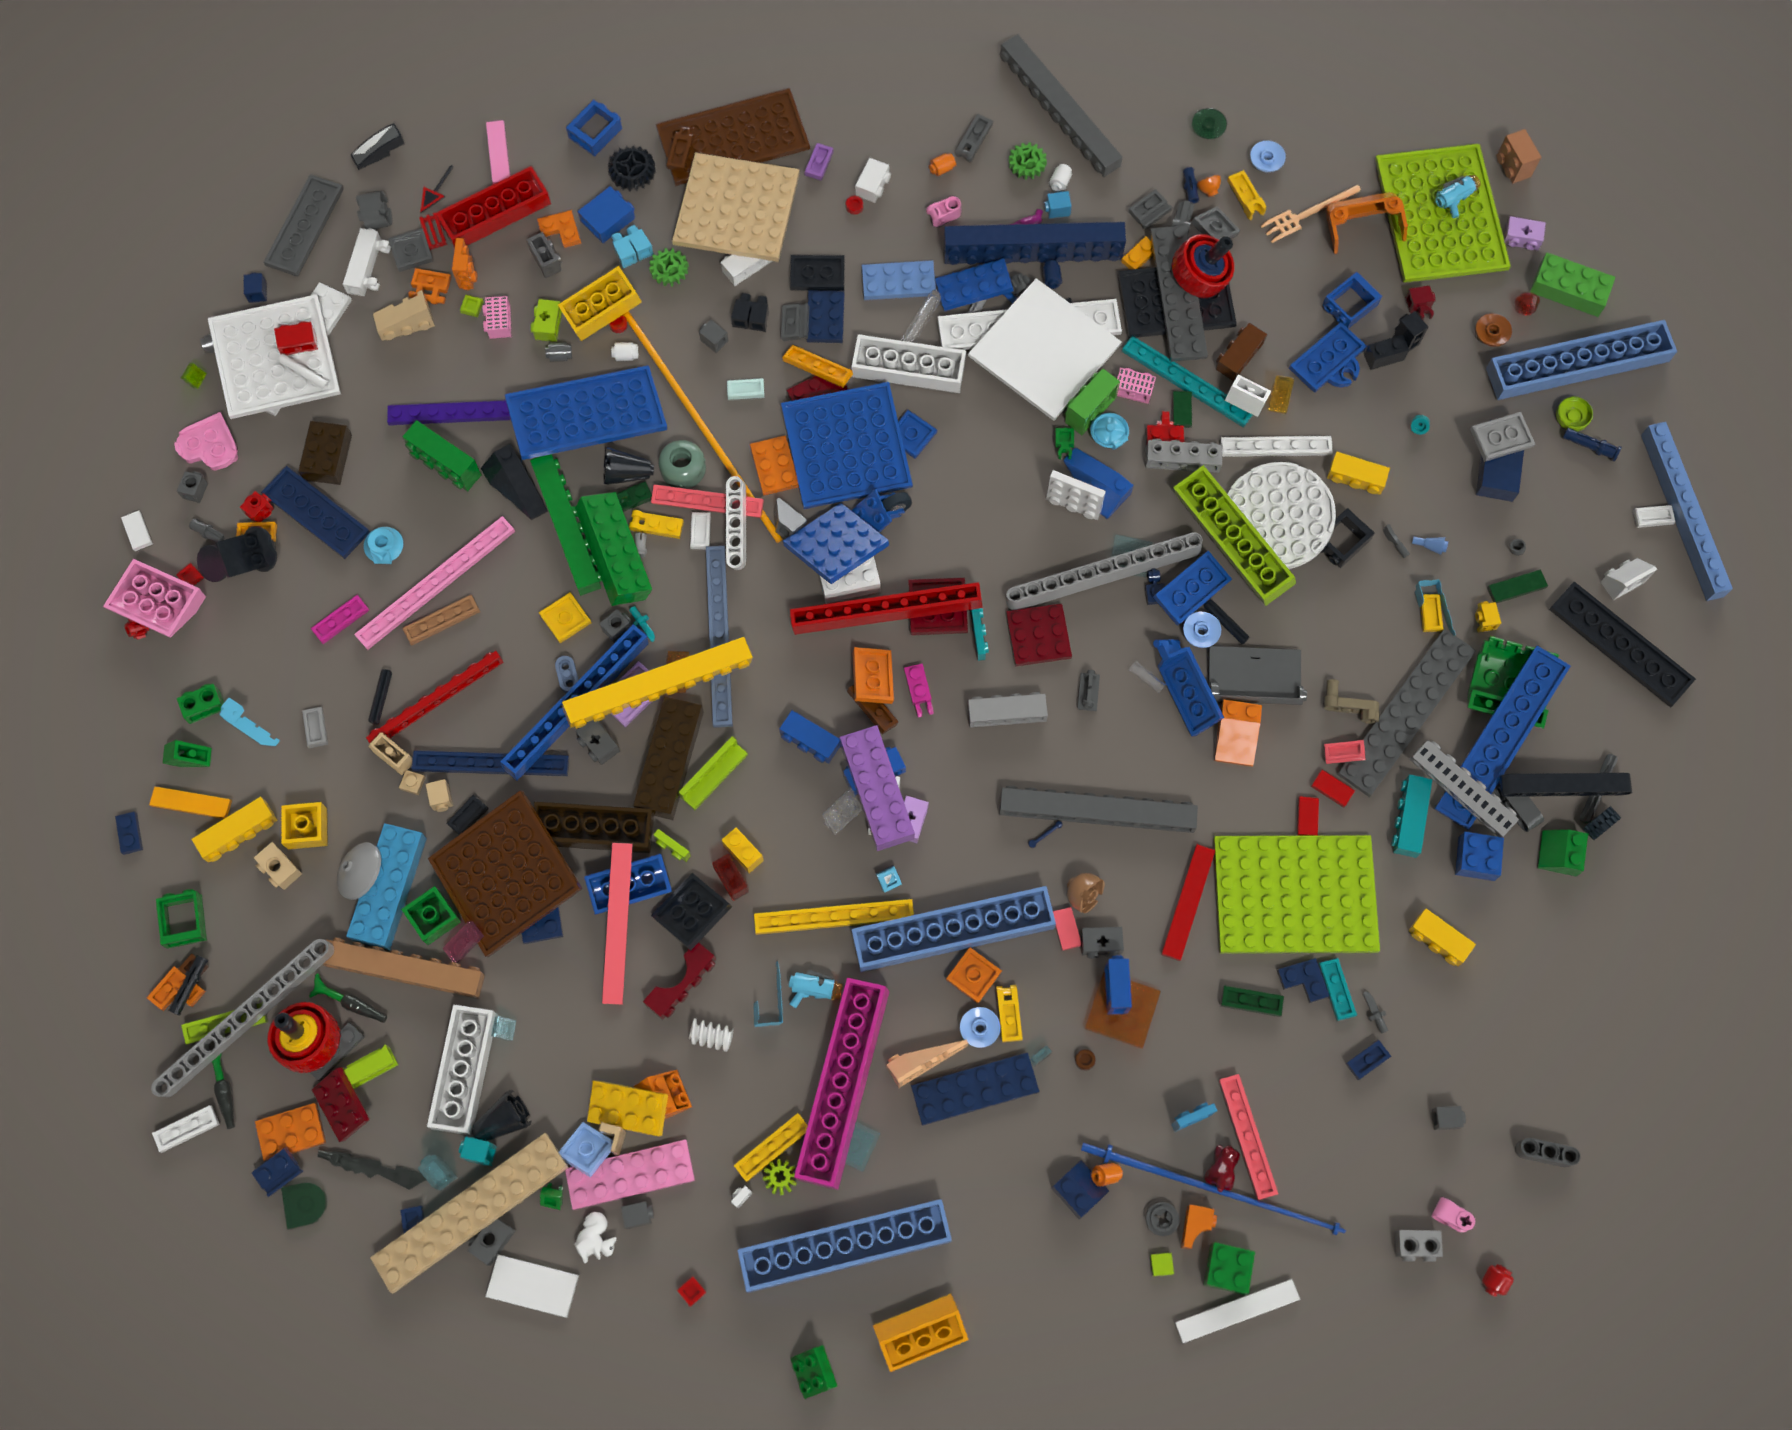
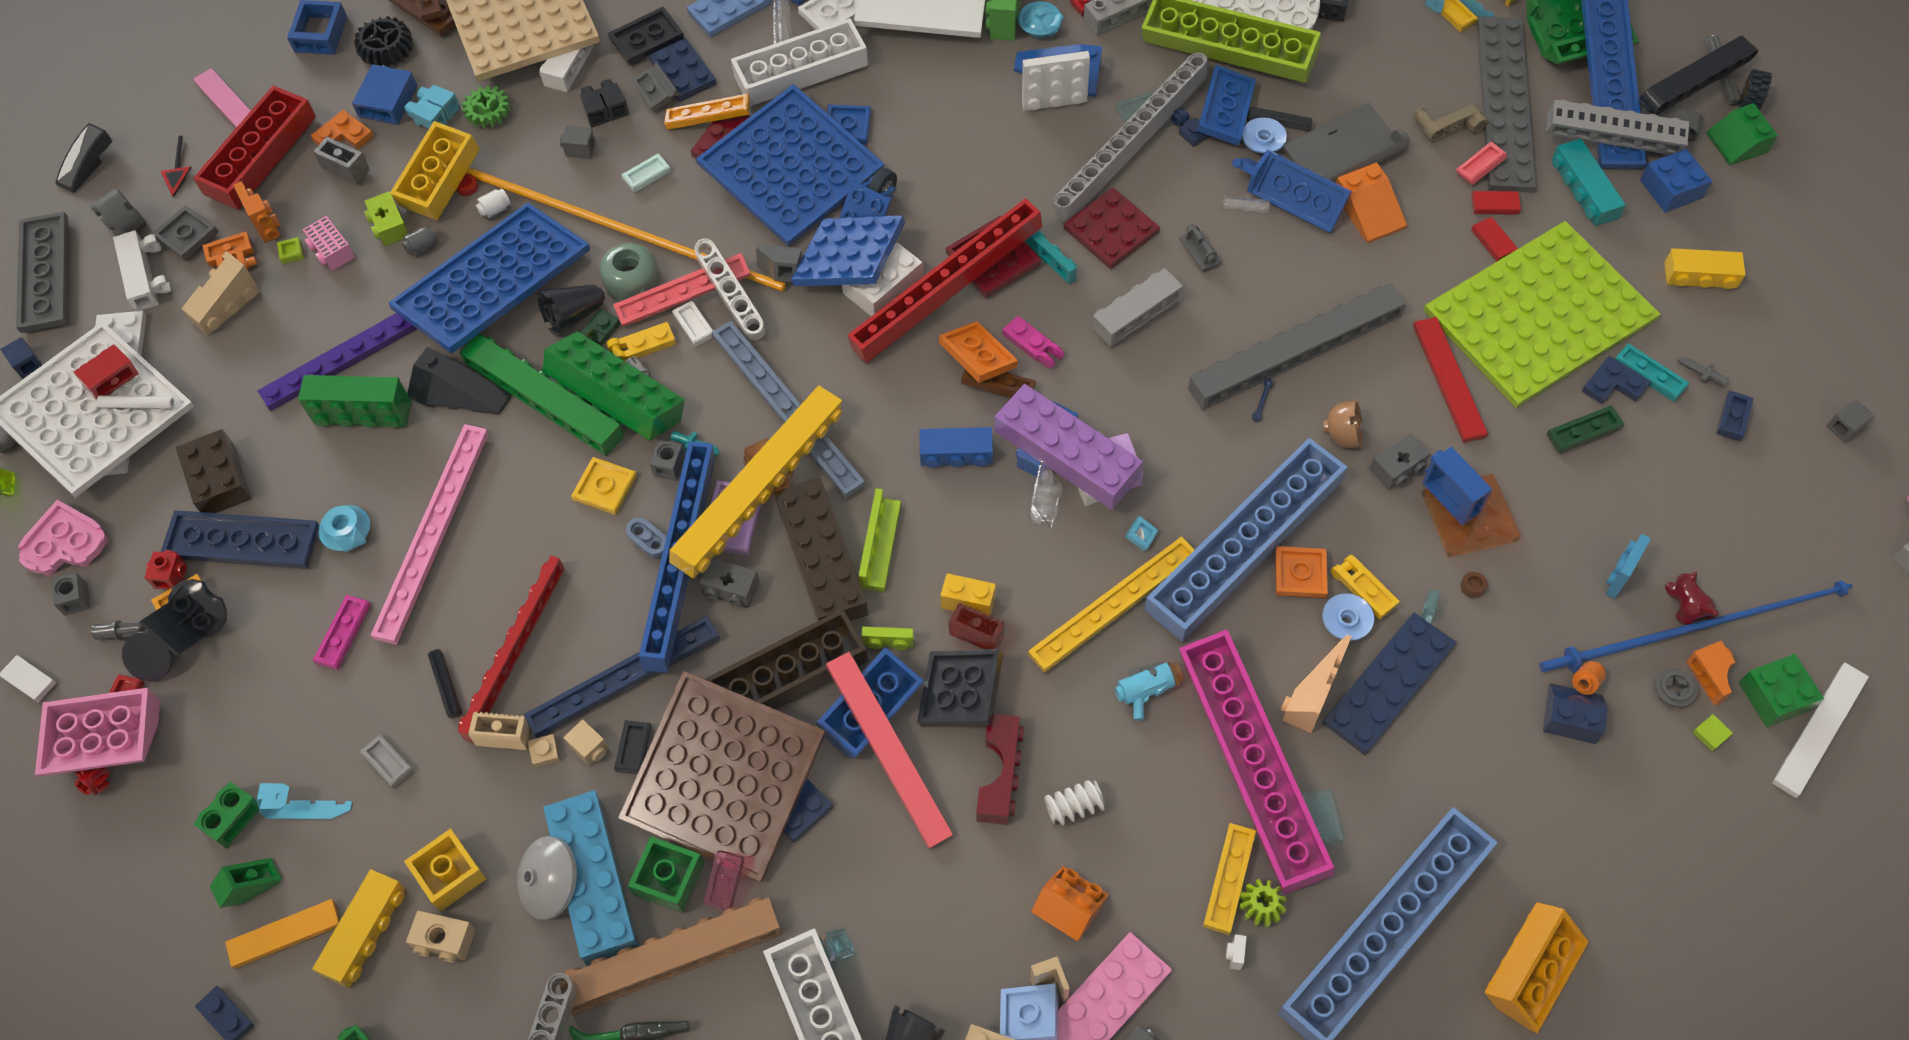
camera: 30 degrees left, 10 degrees down
(429, 219) = (189, 196): red tile -> none
(441, 620) = (463, 566): medium nougat tile -> none
(627, 1108) = (1044, 933): yellow plate -> none
(756, 1007) = (1102, 743): medium azure piece -> none
(774, 465) = (727, 223): orange plate -> none
(1065, 441) = (1003, 48): green plate -> none
(1067, 929) = (1359, 475): coral tile -> none
(1248, 1137) = (1690, 556): coral plate -> none

